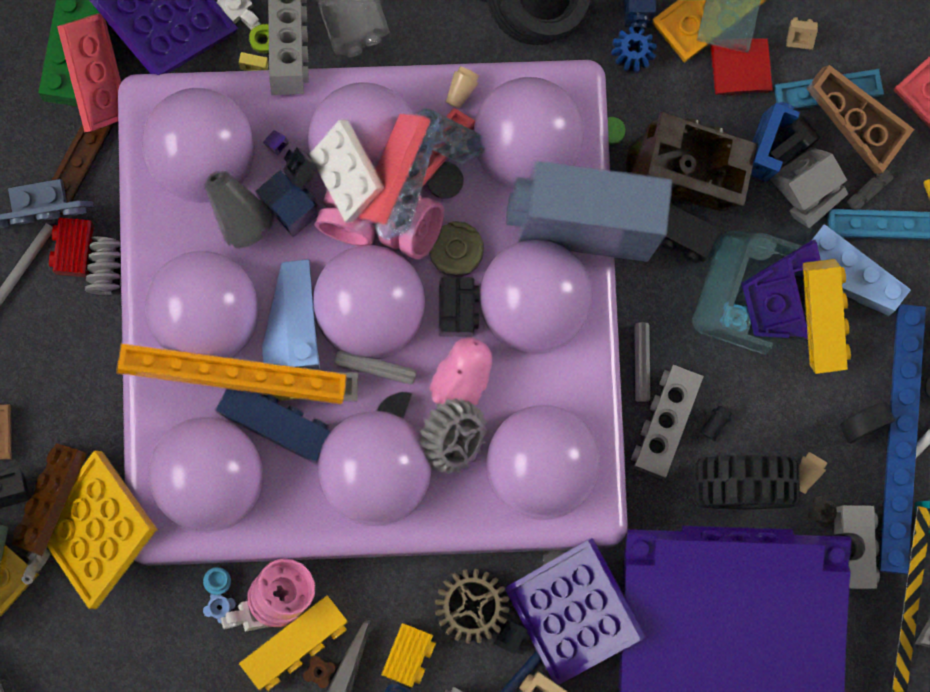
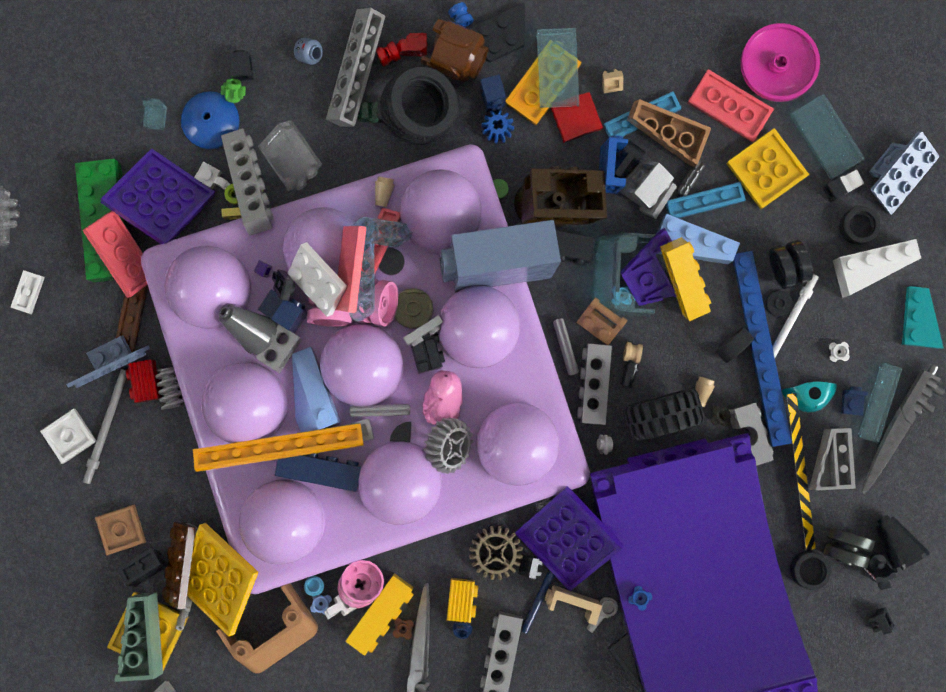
camera: 10 degrees left, 5 degrees up
(150, 644) = (300, 628): none -> medium nougat windscreen
(272, 253) = (283, 351): none -> light grey brick
(451, 282) = (416, 336): none -> light grey plate
(657, 505) = (604, 444): none -> white plate
(694, 345) = (599, 325): none -> medium nougat plate
(729, 394) = (632, 352): none -> tan wheel

